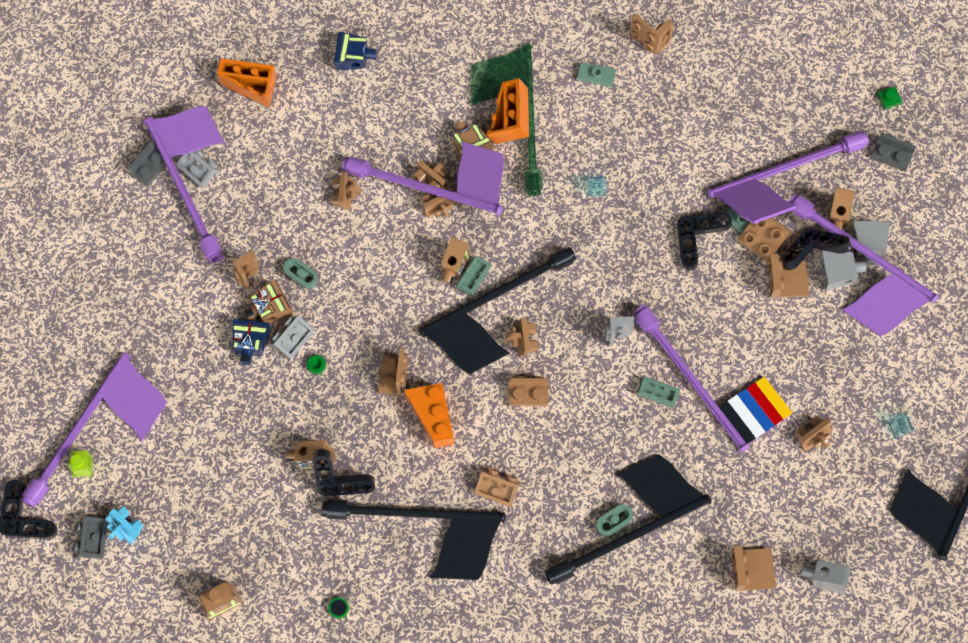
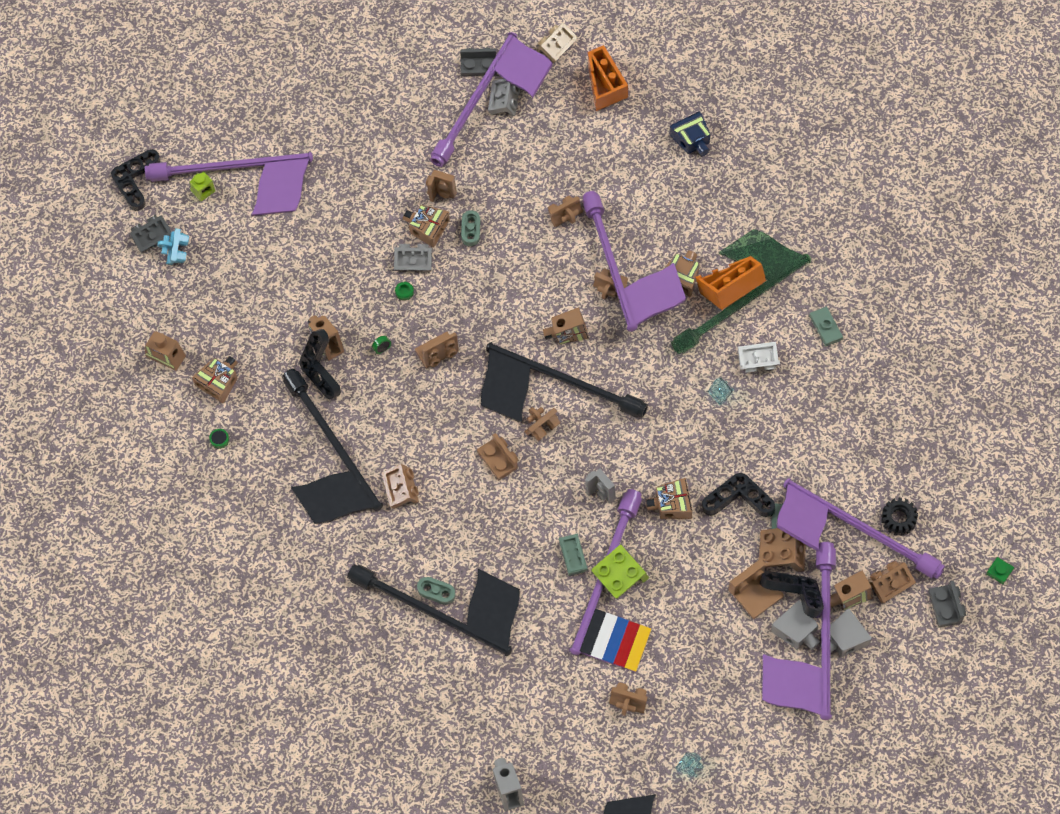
camera: 55 degrees right, 5 degrees down
(180, 93) = (557, 42): none -> tan bracket
(250, 339) = (387, 229): torso -> none
(280, 572) = (217, 378): none -> torso
(354, 415) = (381, 344): none -> green tile
(432, 411) = (425, 398): orange wedge -> none
(433, 173) = (627, 256): medium nougat hips -> none
(473, 276) = (567, 352): sand green plate -> none
(588, 139) = (757, 356): none -> white bracket
(652, 39) = (896, 348): medium nougat bracket -> none
(667, 286) = (672, 500): none -> torso
(702, 366) = (619, 571): none -> lime bracket
(753, 569) = (471, 721): medium nougat bracket -> none
(796, 124) = (903, 506): none -> black tyre
(847, 175) = (891, 580): none -> medium nougat bracket

